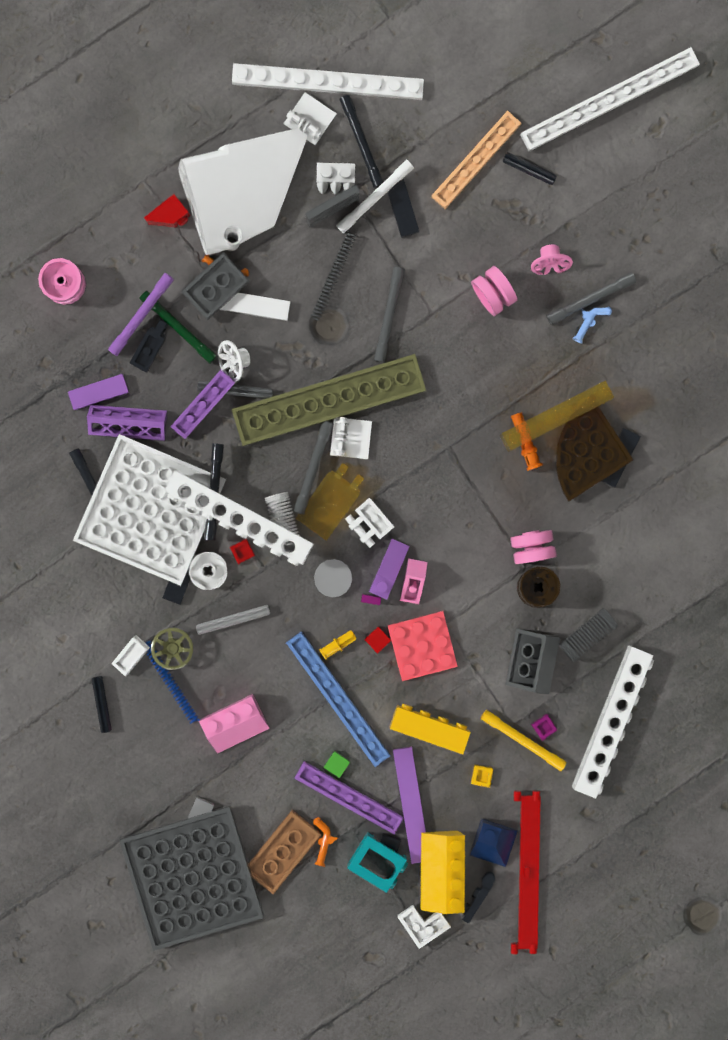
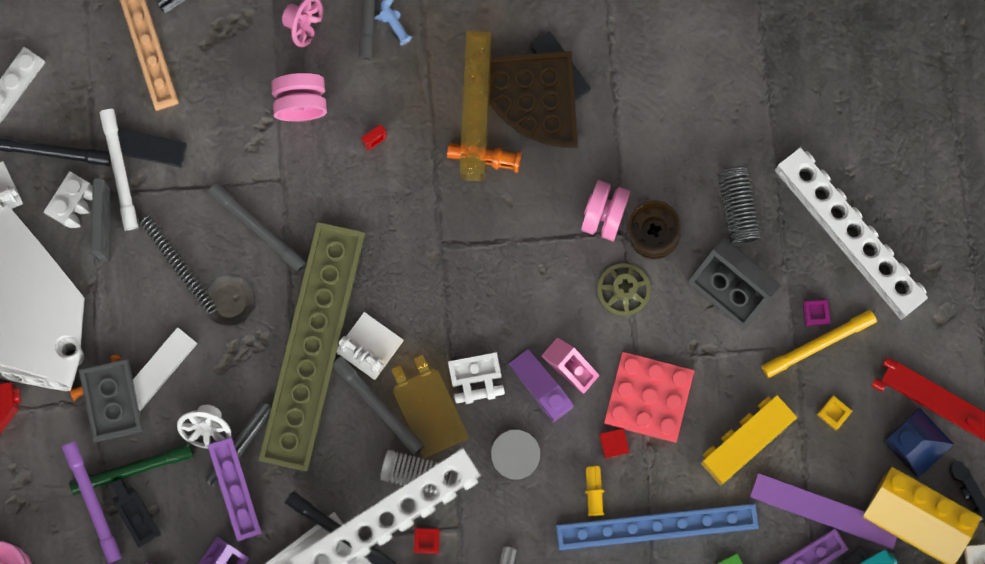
camera: 55 degrees left, 10 degrees down
(371, 599) = (563, 424): magenta tile -> none
(487, 588) = (624, 289): none -> olive wheel
(496, 358) = (374, 137): none -> red tile

